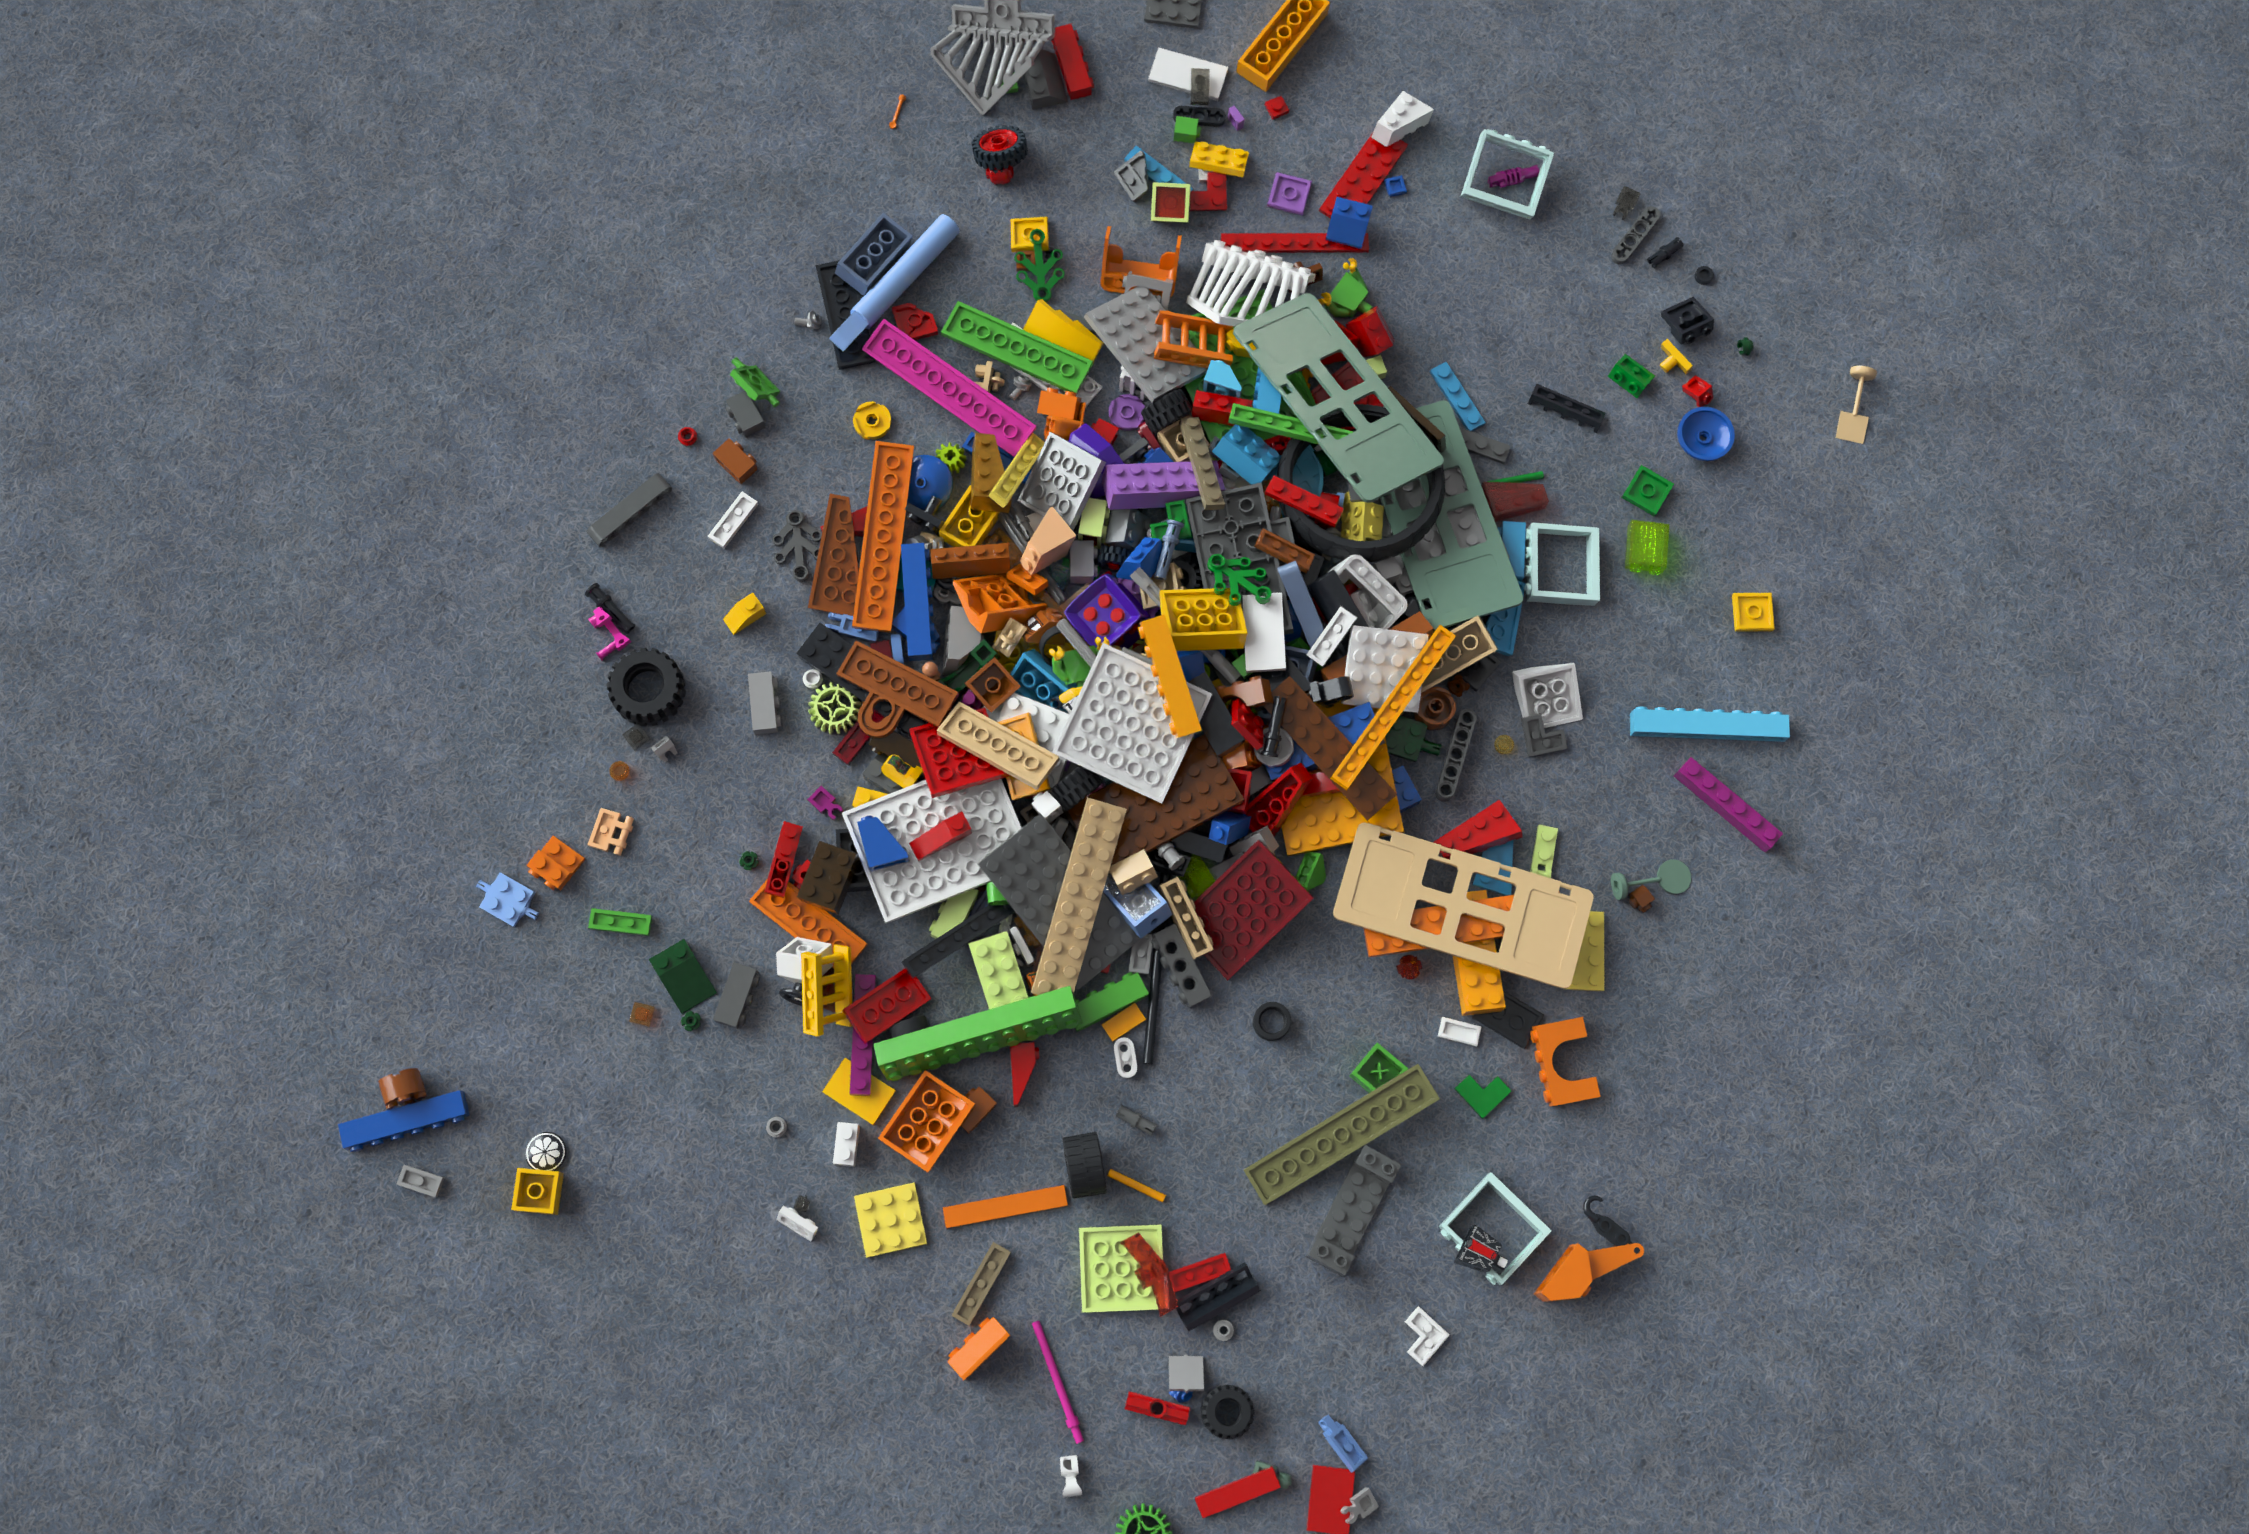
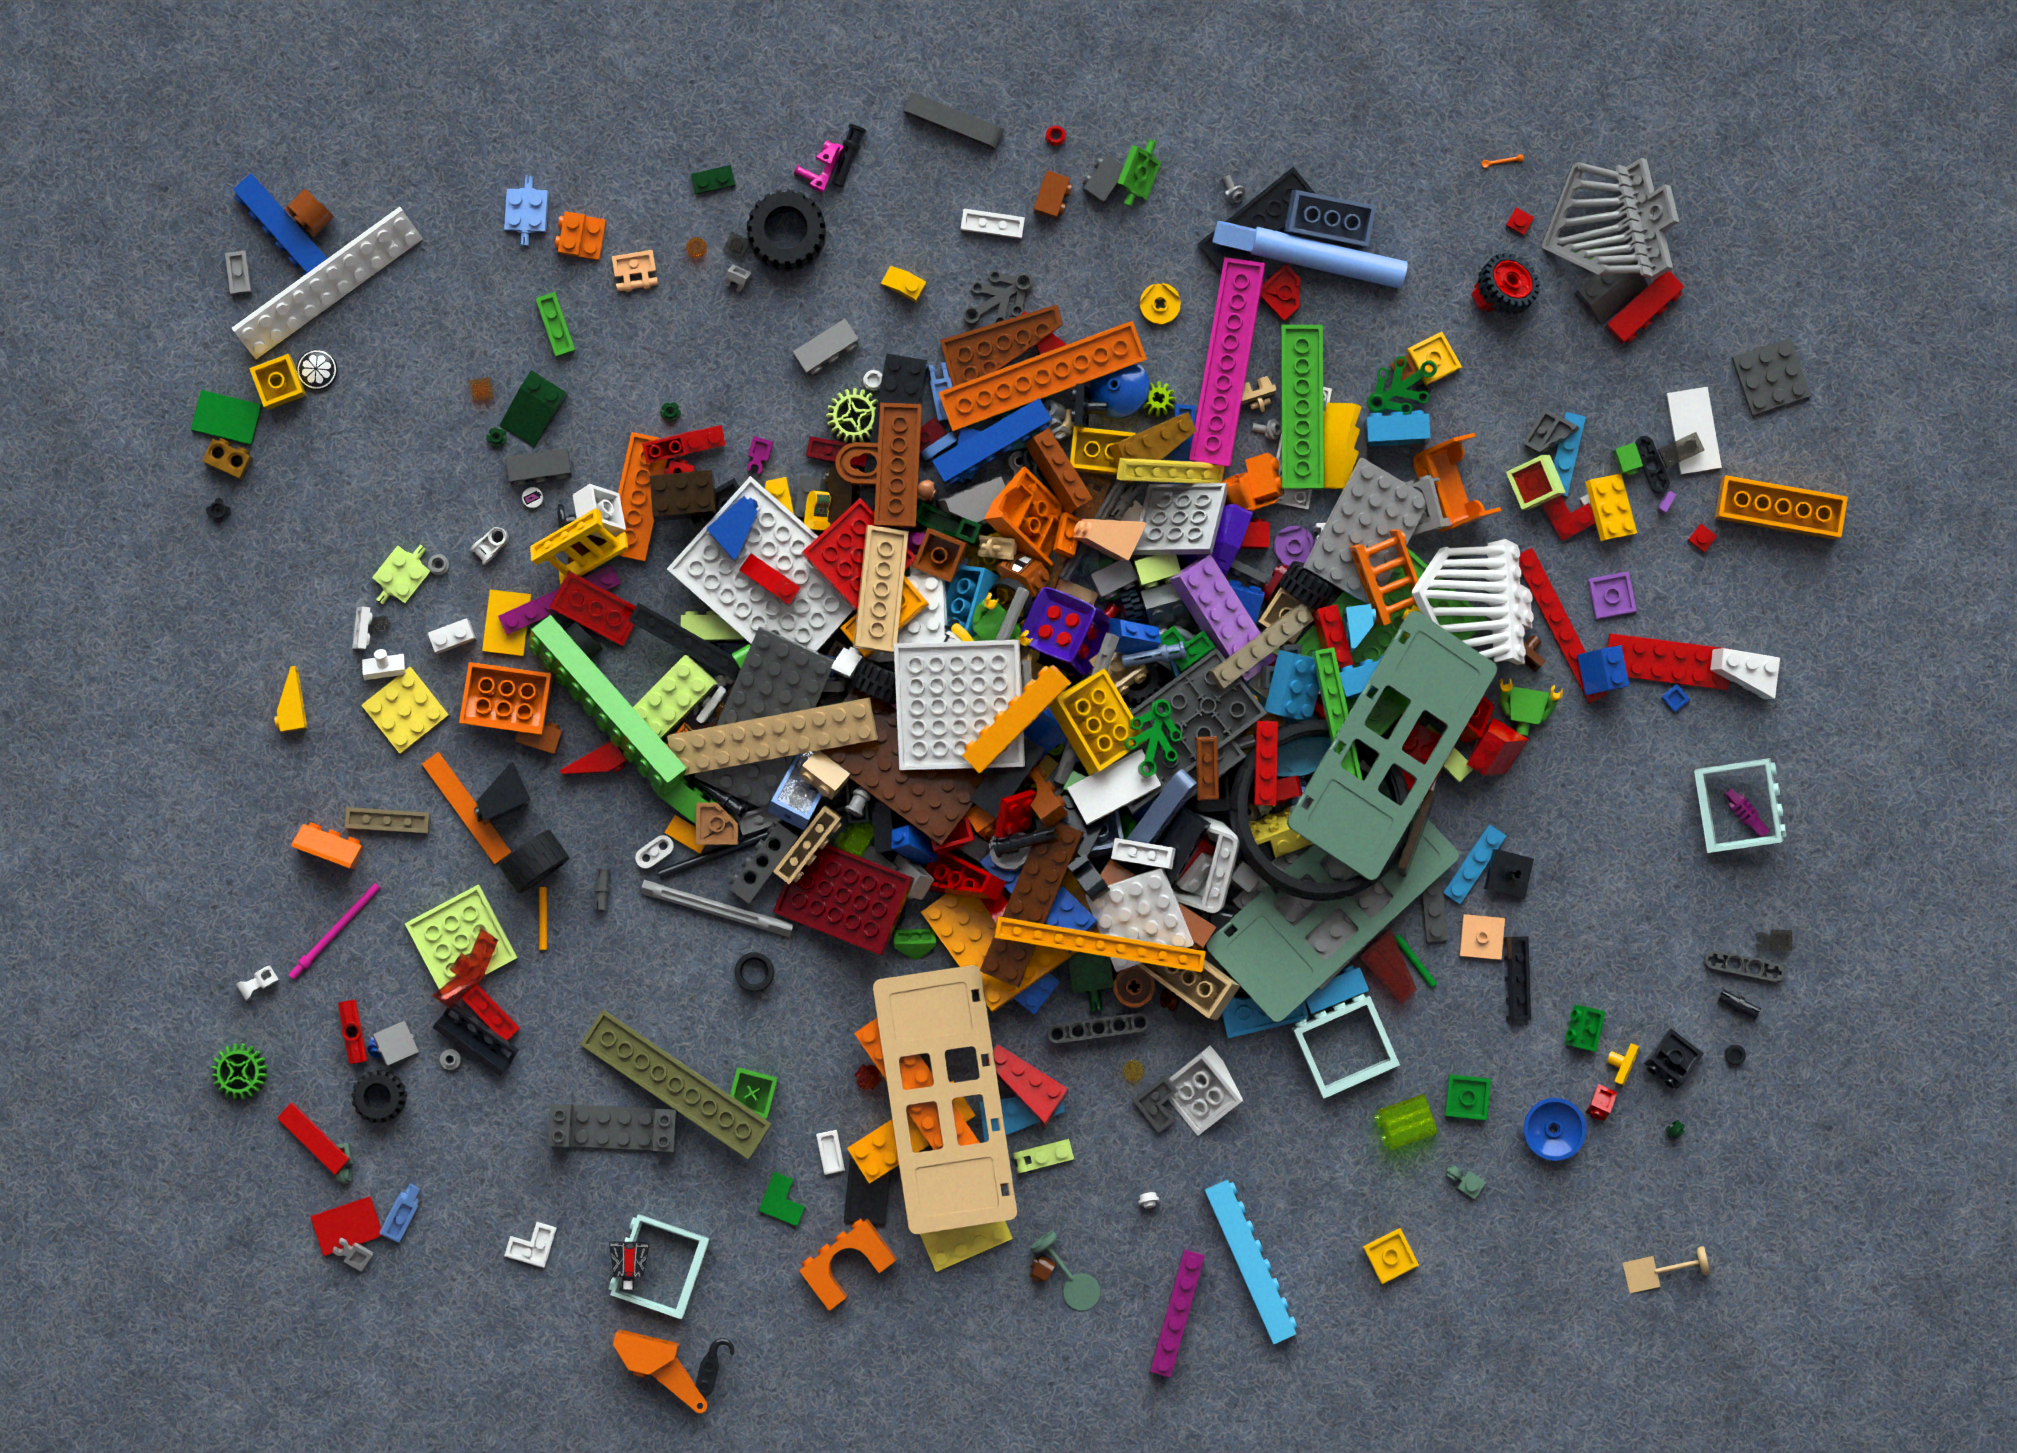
camera: 65 degrees right, 10 degrees up
(474, 1104) = (327, 283): none -> white plate
(543, 1255) = (226, 417): none -> green tile
(569, 729) = (713, 179): none -> dark green plate
(585, 1276) = (225, 463): none -> pearl gold brick
(618, 1300) = (218, 504): none -> black plate
(760, 1015) = (532, 497): none -> tile
(768, 1164) = (401, 574): none -> yellowish green plate
(783, 1073) = (489, 546): none -> white piece
(837, 1323) = (291, 706): none -> yellow slope
(841, 1219) = (383, 665): none -> white tile
(952, 121) = (1519, 221): none -> red plate
(1012, 1166) = (502, 797): none -> black slope
(1073, 283) = (1397, 429): none -> dark azure brick
(1112, 972) = (726, 801): none -> black pin
(1129, 990) = (715, 825): none -> medium nougat plate
(1200, 1028) = (716, 908): none -> light grey piece
(1478, 373) = (1509, 873): none -> black tile
(1520, 419) = (1482, 937): none -> light nougat plate
(1620, 783) = (1148, 1200): none -> white plate
(1719, 522) = (1469, 1184): none -> sand green plate

